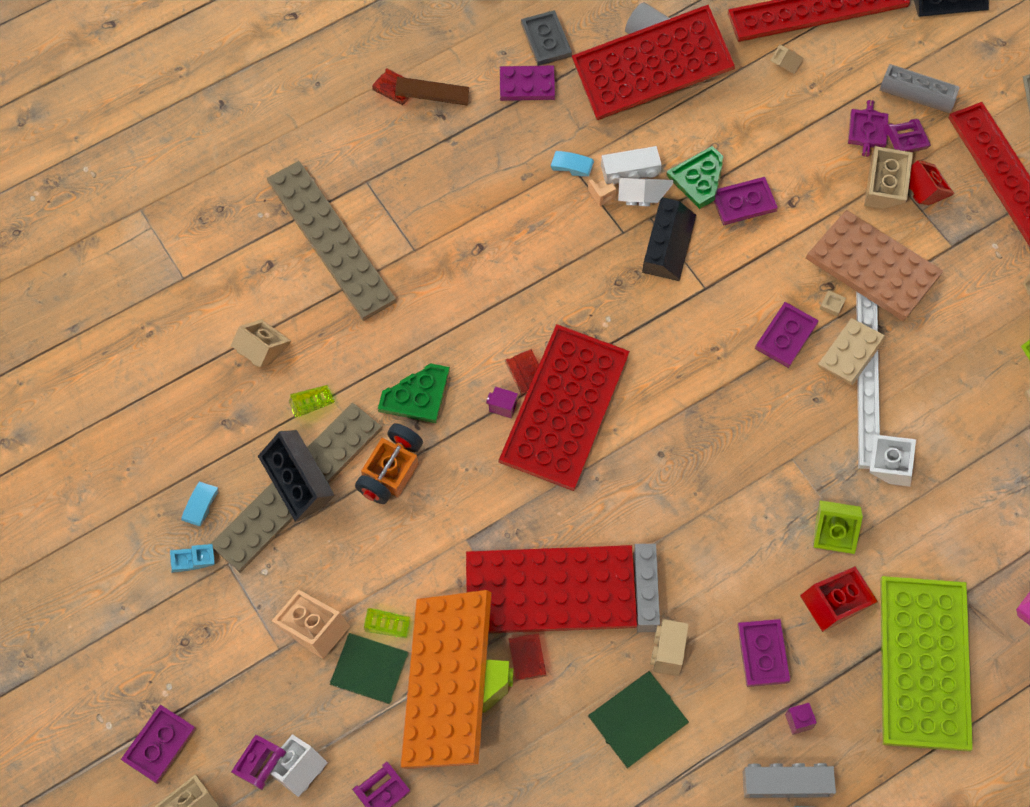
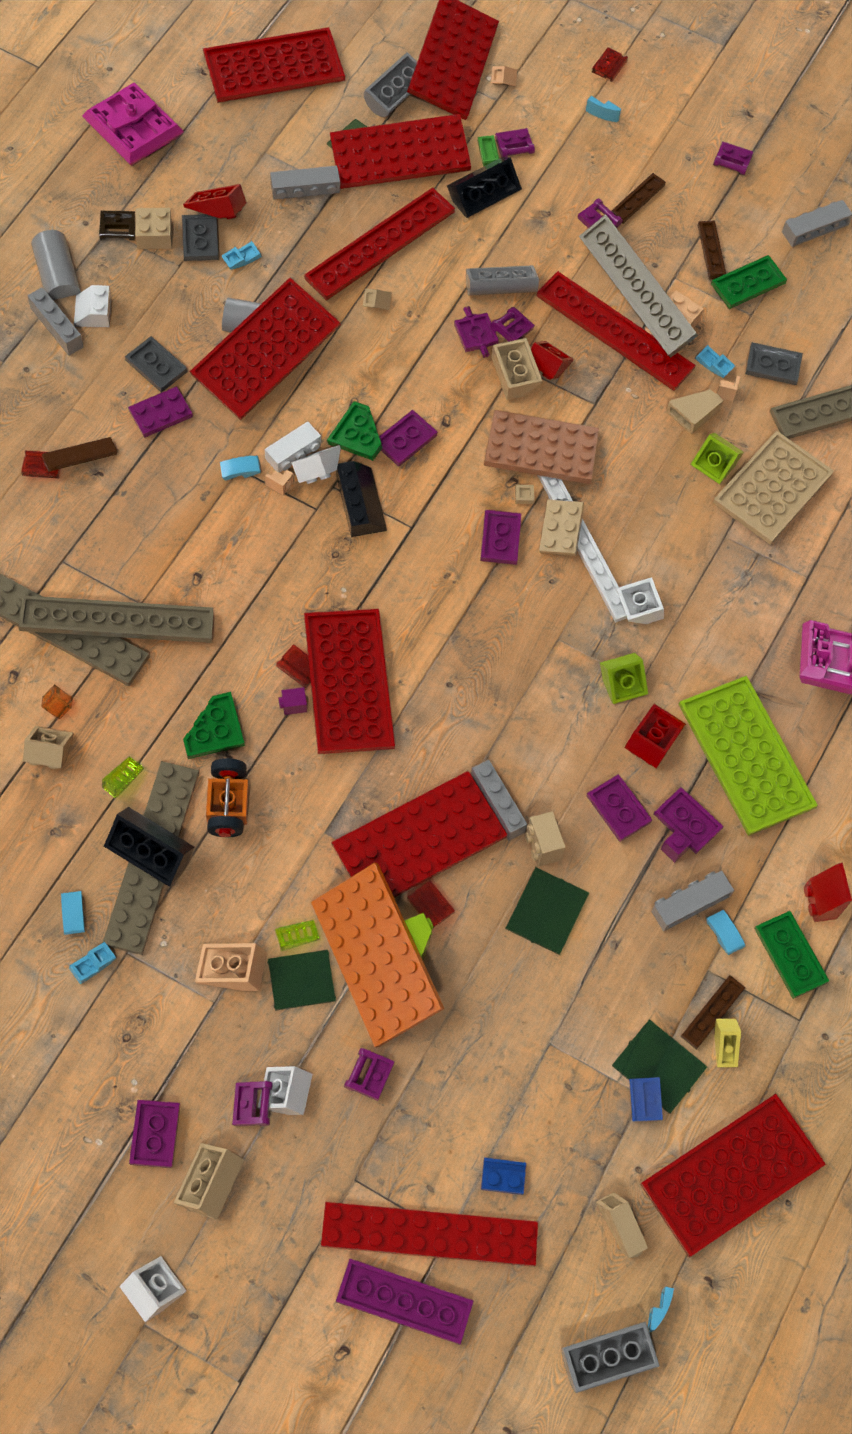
camera: 35 degrees left, 0 degrees up
(290, 306) = (56, 702): none -> clear orange panel
(383, 254) = (116, 619): none -> dark tan plate
(828, 698) = (690, 818): none -> magenta plate

